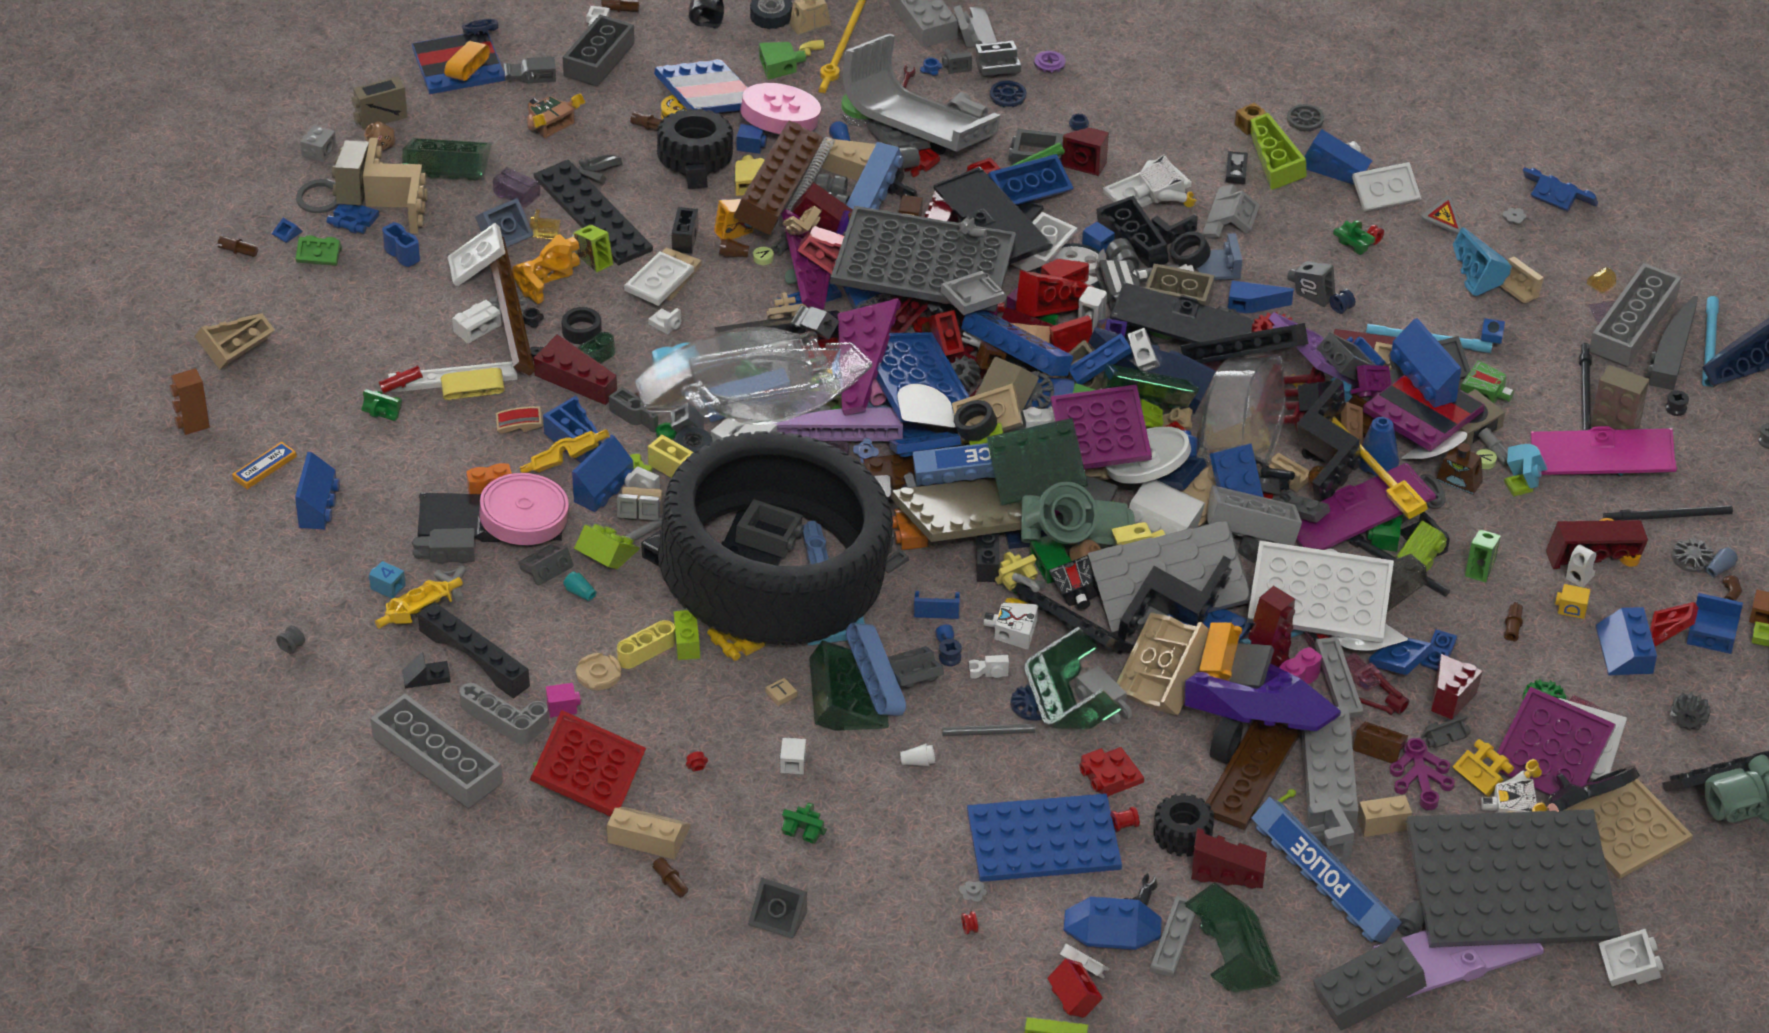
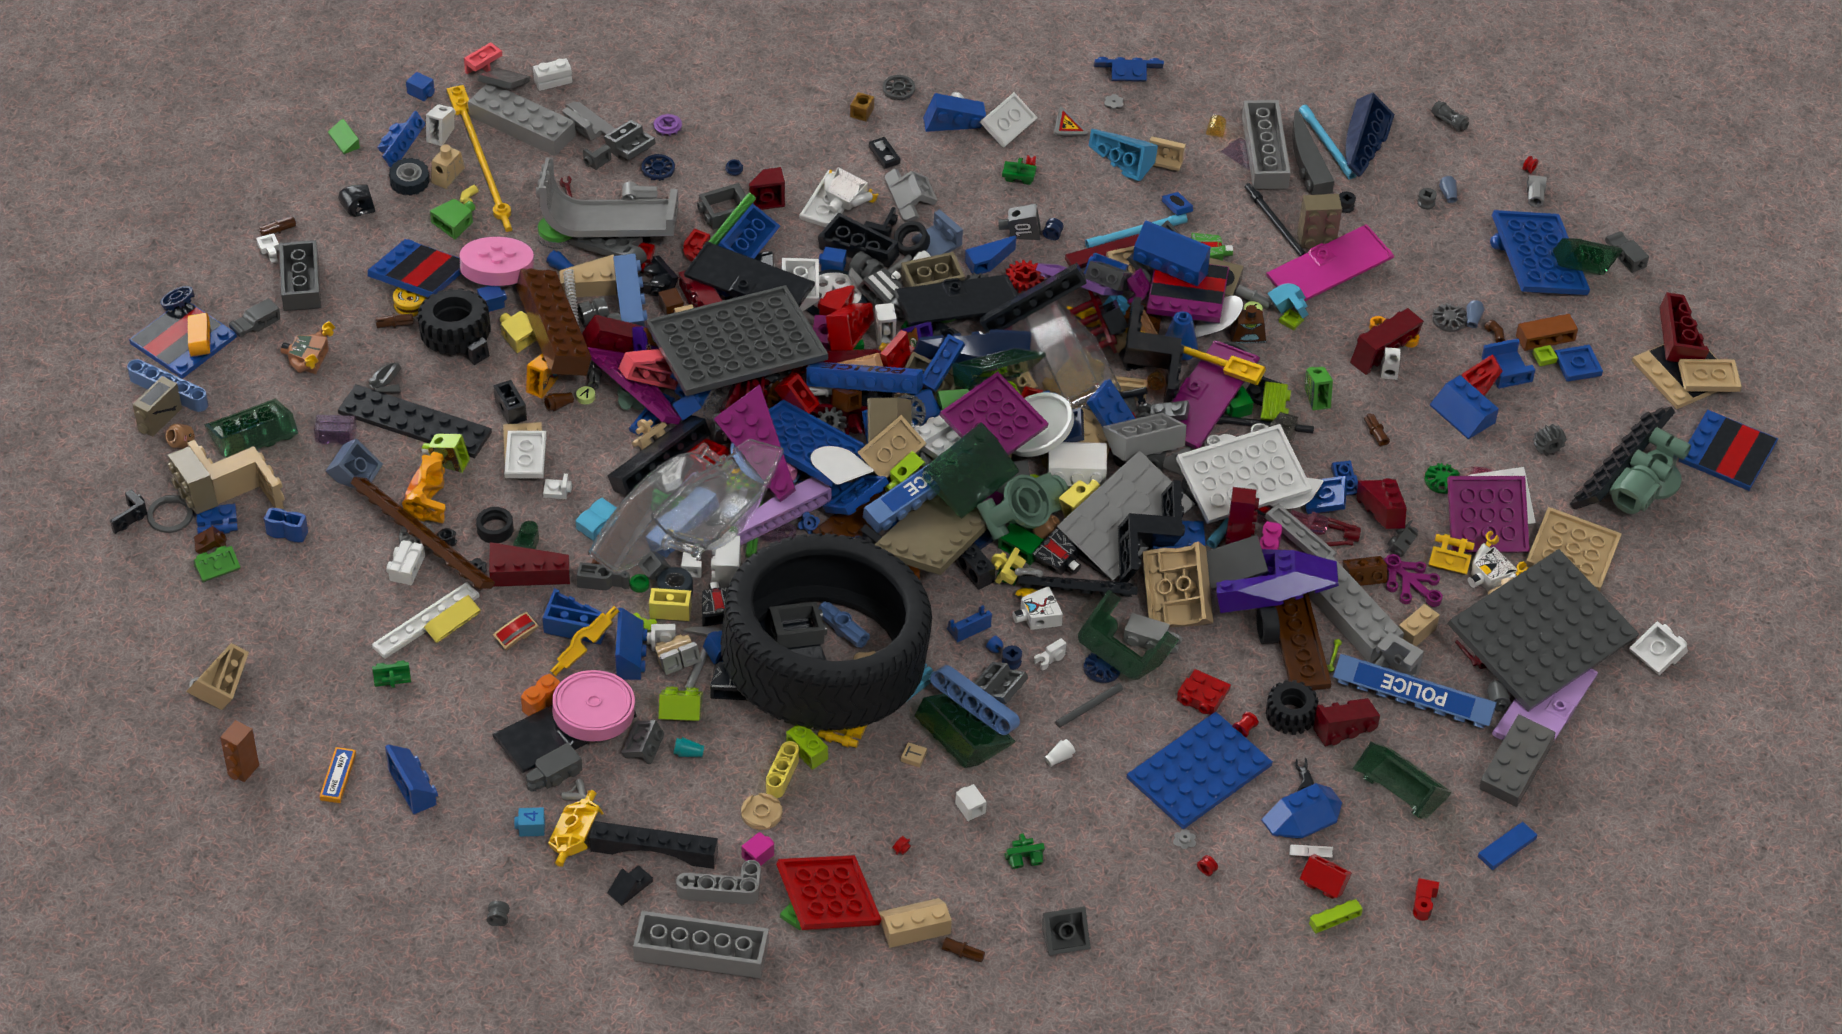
camera: 35 degrees left, 5 degrees up
(237, 246) = (140, 592): reddish brown axle -> none
(284, 181) = (135, 513): none -> black bracket
(286, 230) = (169, 558): blue slope -> none
(318, 143) = (129, 467): light grey head -> none
(331, 228) = (209, 539): none -> reddish brown bracket
(400, 379) = (391, 644): red pin -> none
(417, 103) = (147, 374): none -> medium blue beam
(476, 254) = (360, 504): white tile -> none
(544, 227) = (389, 453): clear yellow bracket -> none
(808, 219) = (619, 352): tan bracket -> none
(815, 320) = (696, 433): dark grey piece -> none
(838, 298) = (687, 405): none -> blue brick
(924, 181) = (661, 272): none -> black tile
(931, 66) = (578, 170): blue plate -> none
(967, 227) = (750, 298): light grey plate -> none
(971, 410) = (886, 447): black tyre -> none
(973, 292) = (805, 353): light grey container -> none
(1143, 350) = (973, 341): white leg -> none
(1173, 938) = (1352, 797): light grey tile -> none
(1220, 650) = (1221, 557): light orange brick -> none
(1276, 152) = (906, 126): lime wedge -> none
(1572, 794) = (1532, 547): black animal -> none
(1573, 601) = (1404, 393): yellow brick -> none
(1669, 513) = (1383, 308): black bar -> none

